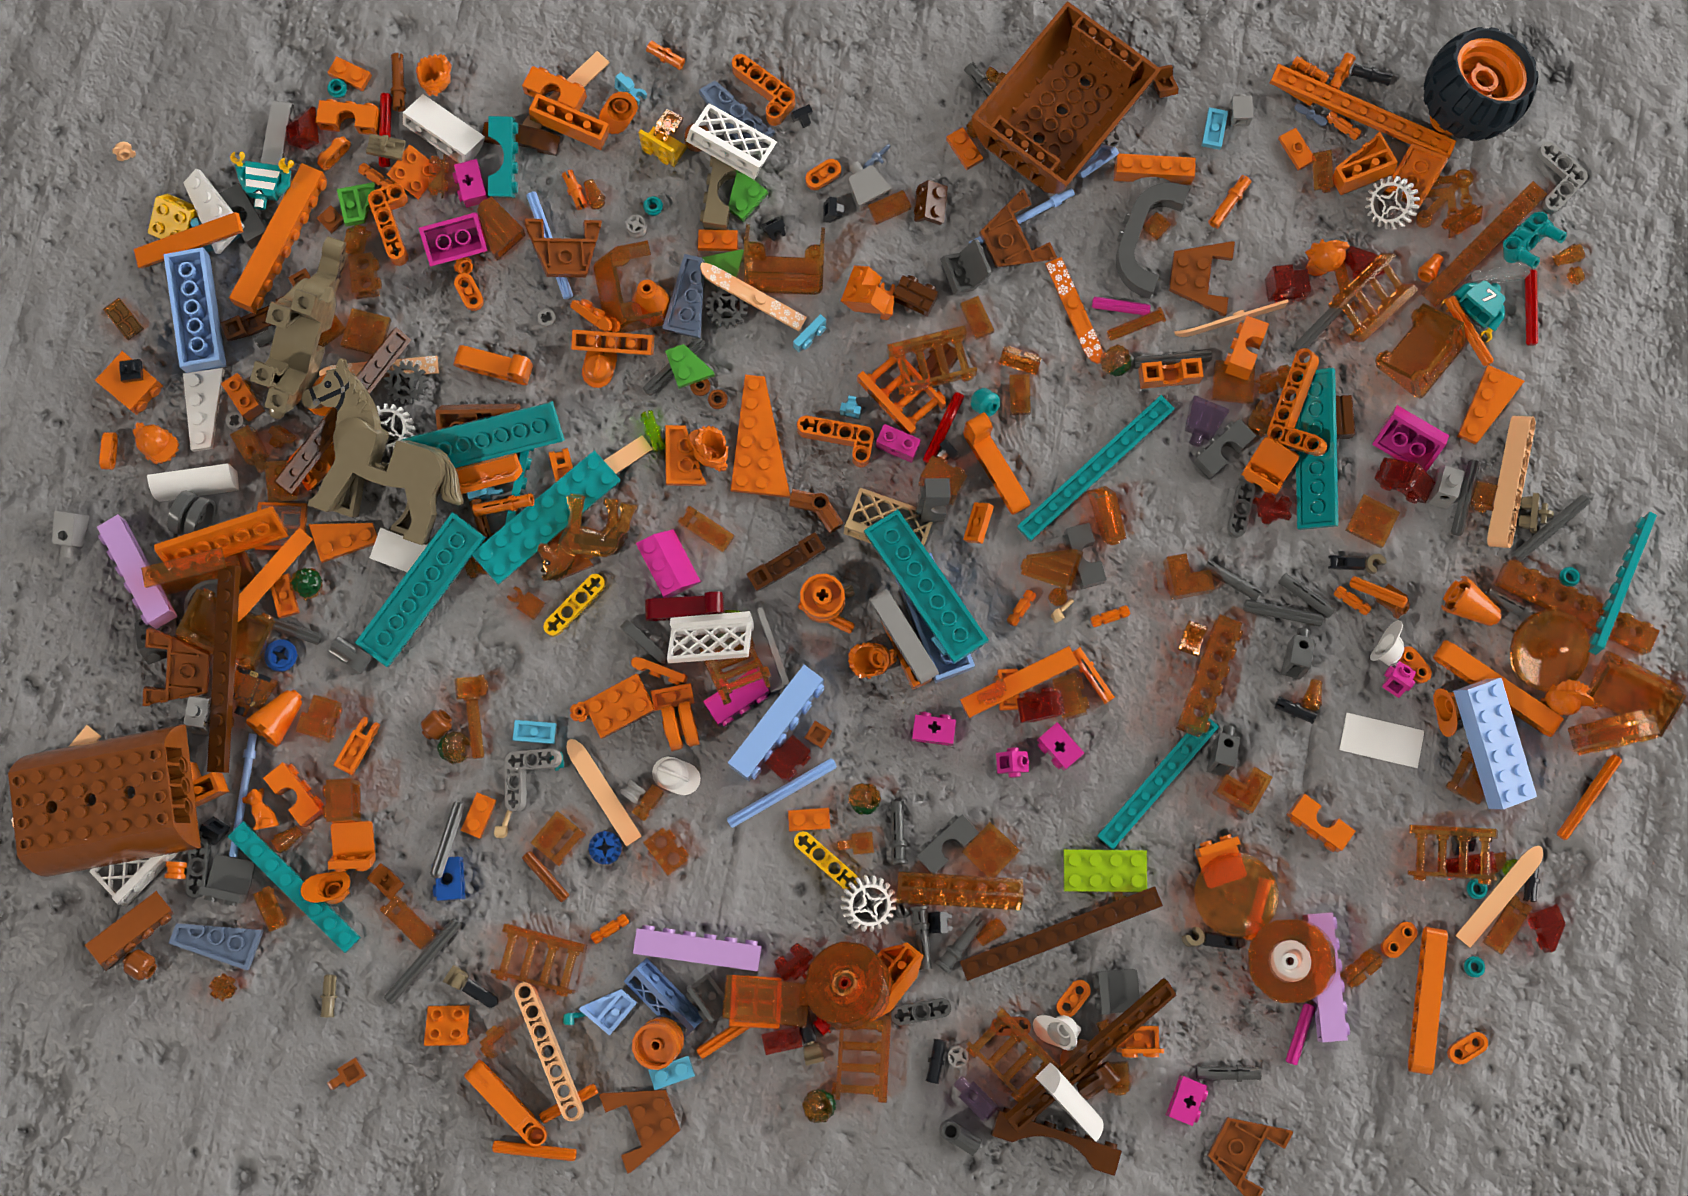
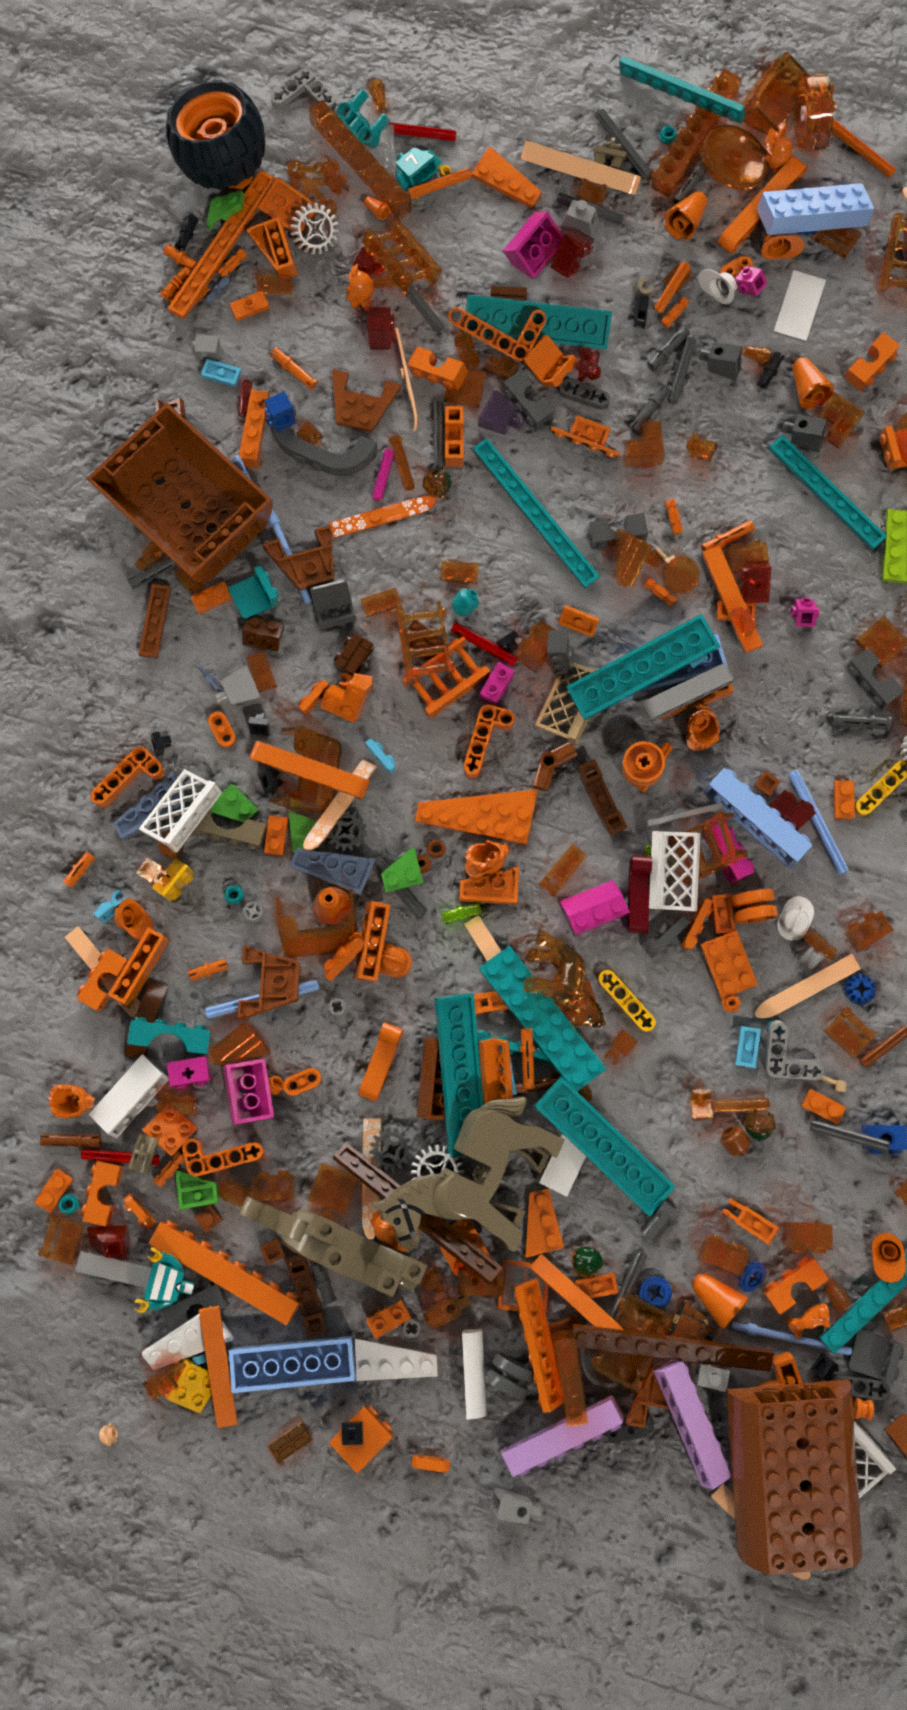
camera: 80 degrees left, 0 degrees up
(152, 697) = (692, 1424): none -> lavender brick
(155, 442) = (428, 1411): orange hair -> none
(170, 188) = (163, 1380): none -> clear orange bracket
(295, 751) = (751, 1283): none -> blue gear
(302, 91) = (67, 1240): none -> clear orange plate
(352, 846) = (852, 1229): orange bracket -> none
(385, 880) = (884, 1199): dark orange bracket -> none
(594, 196) = (216, 951): clear orange cone -> none
(784, 261) = (309, 769): none -> orange beam
(850, 408) = (458, 724): medium azure plate -> none
(860, 843) = (869, 755): clear orange plate -> none
(861, 257) = (309, 702): none -> orange plate
(864, 798) = (830, 746): clear orange piece -> none
(923, 734) = (775, 671): dark pink brick -> none
(932, 95) = (154, 621): none -> dark orange plate
(970, 188) = (254, 594): none -> teal bracket
(977, 434) = (501, 610): orange beam -> none
(1012, 358) = (429, 561): clear orange hinge -> none
(1042, 627) = (681, 574): none -> clear orange tile
(1070, 749) = (797, 563): dark pink brick -> none
(1107, 514) = (580, 506): clear orange slope -> none
(1168, 186) = (279, 412): none -> blue brick
(1188, 720) = (743, 444): clear orange brick -> none
(1192, 516) = (590, 433): none -> orange bracket
(1200, 155) = (246, 386): none -> clear red axle
(1282, 753) = (811, 384): none -> orange cone
(1372, 521) = (605, 286): clear orange plate -> none
(1405, 108) = (224, 207): none -> bright green wing
(1424, 350) = (453, 223): clear orange windscreen -> none
(1575, 275) = (397, 91): clear orange plate -> none

